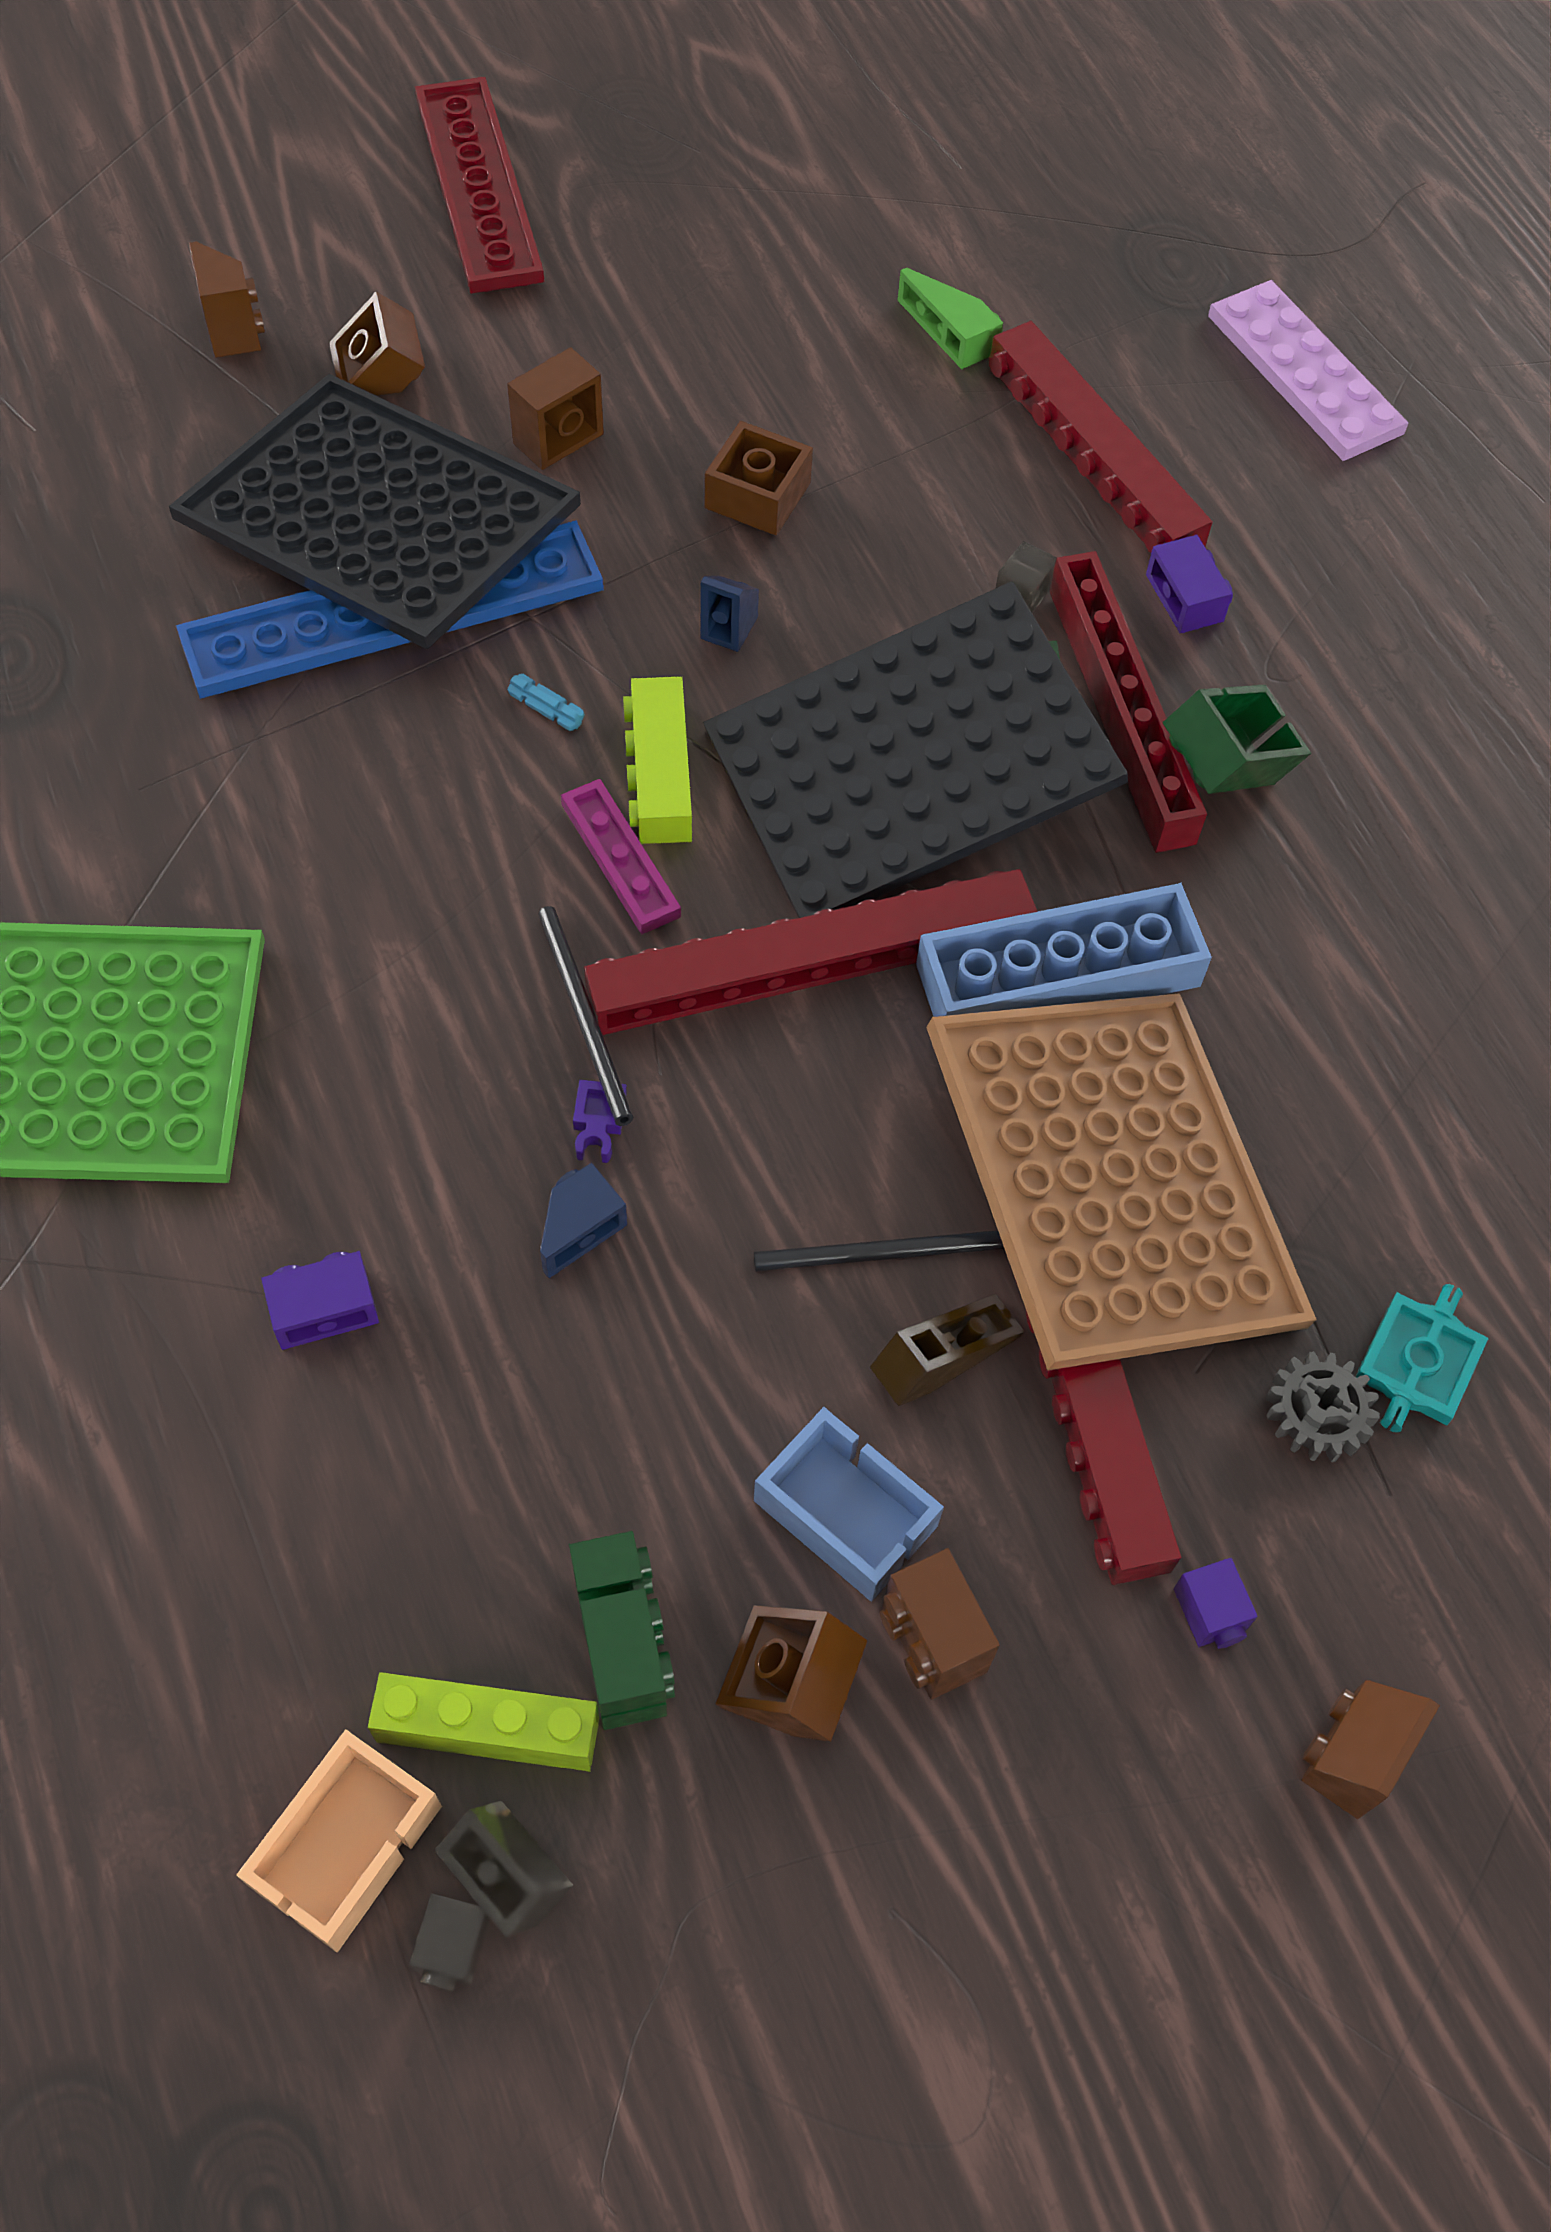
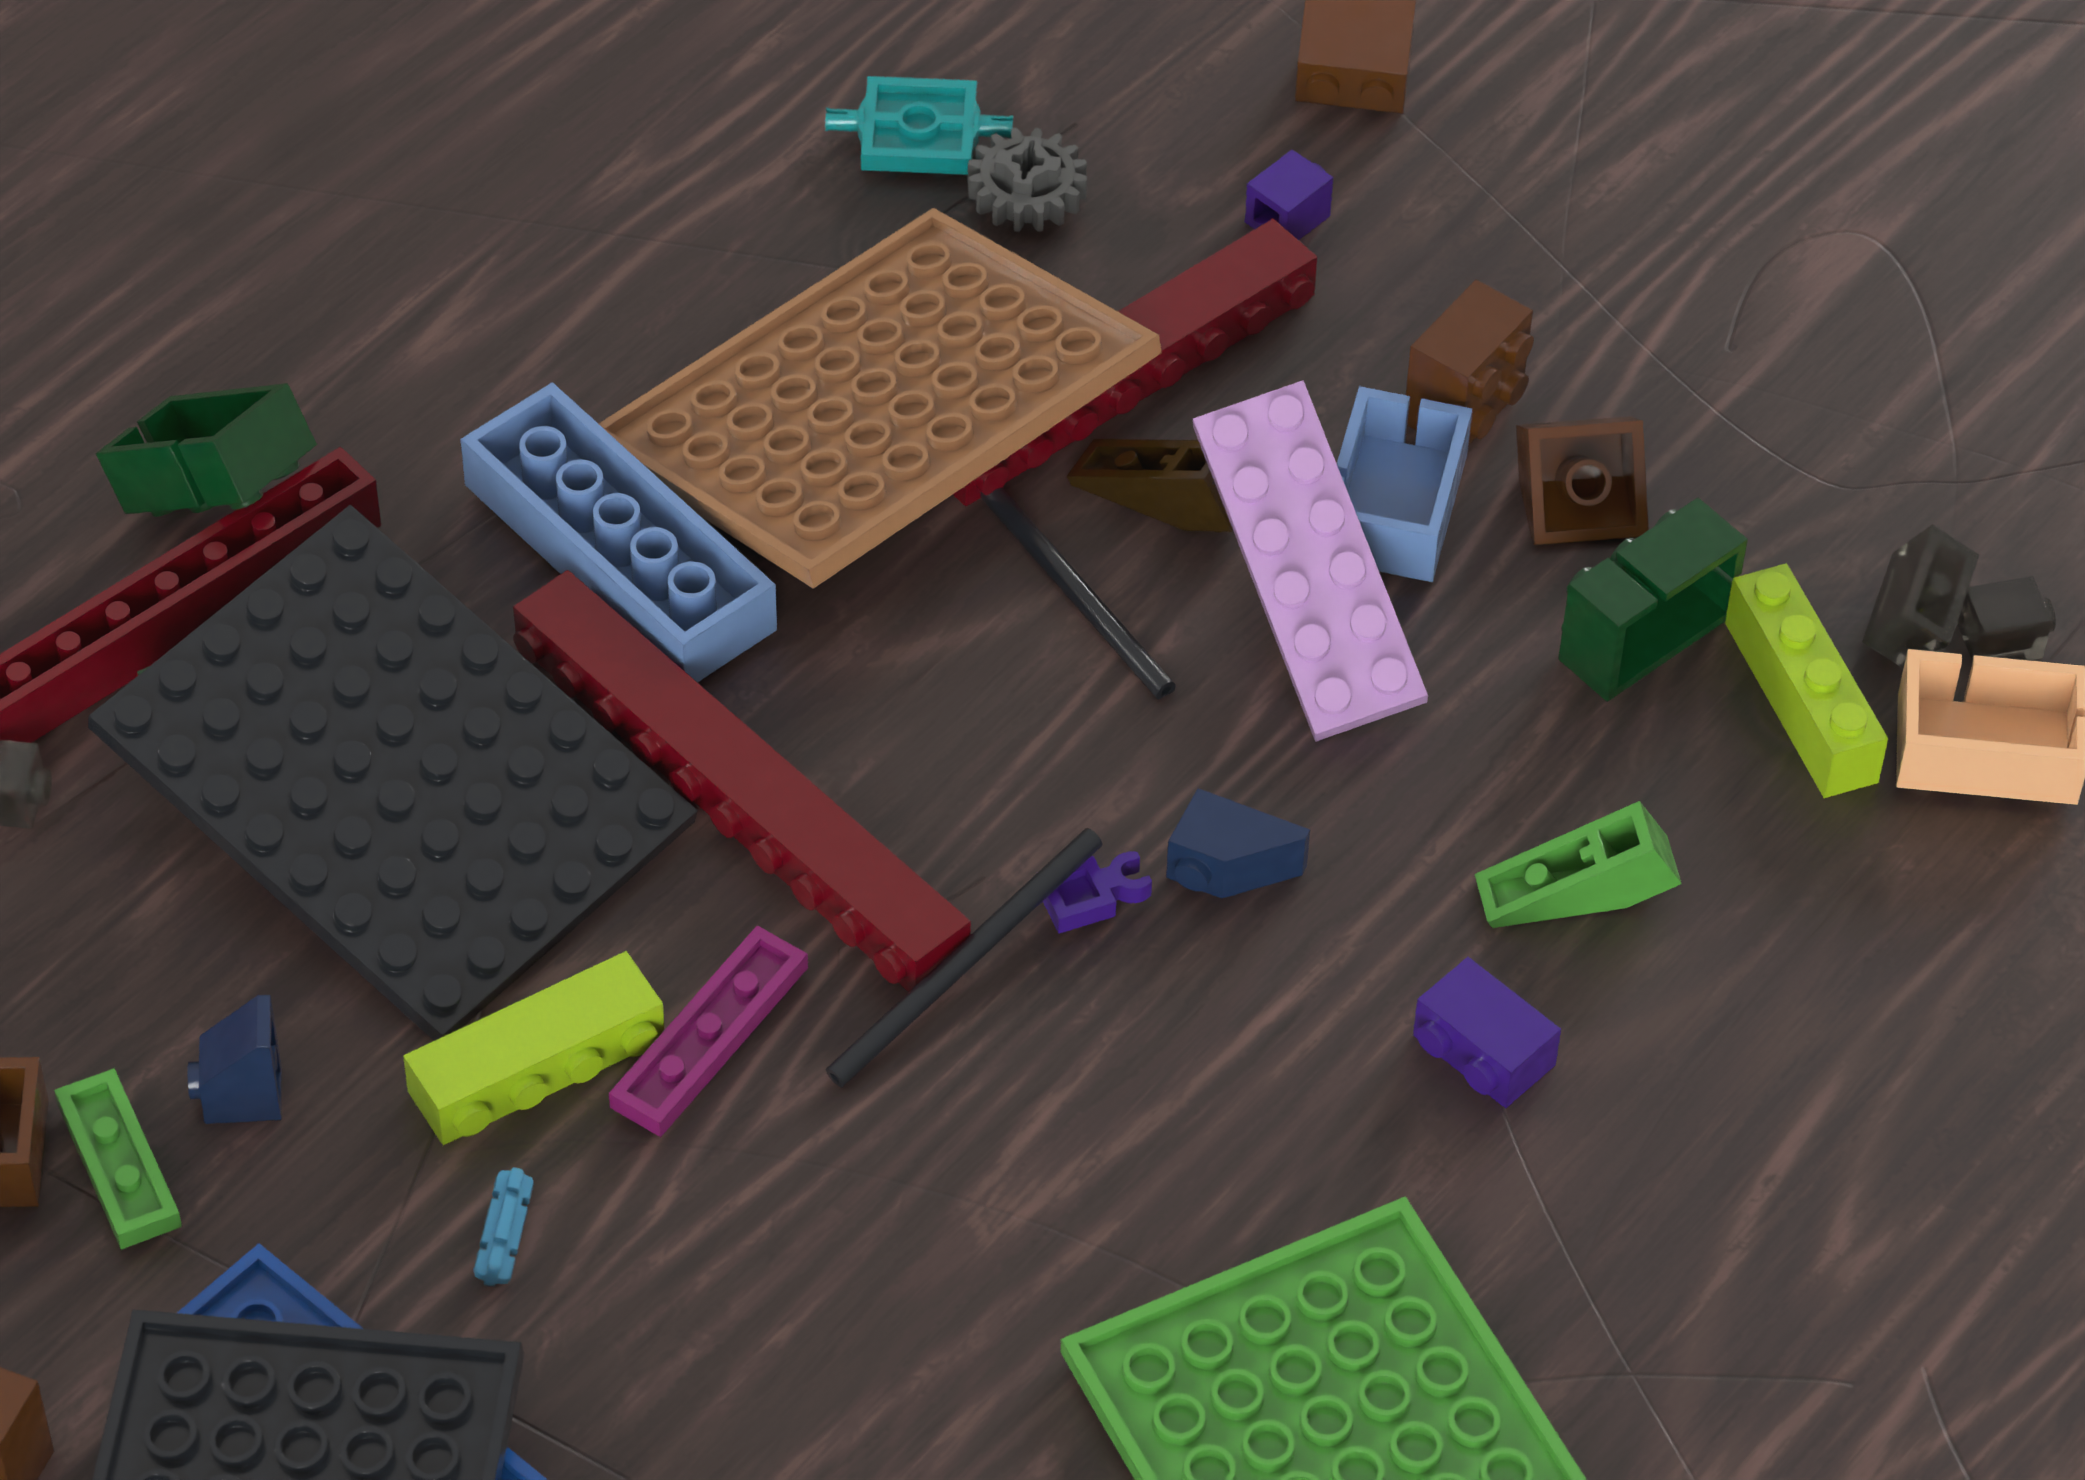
camera: 115 degrees left, 10 degrees down
(409, 1444) = (1582, 872): none -> bright green slope
(710, 545) = (118, 1158): none -> bright green plate
(790, 1378) = (1310, 561): none -> lavender plate

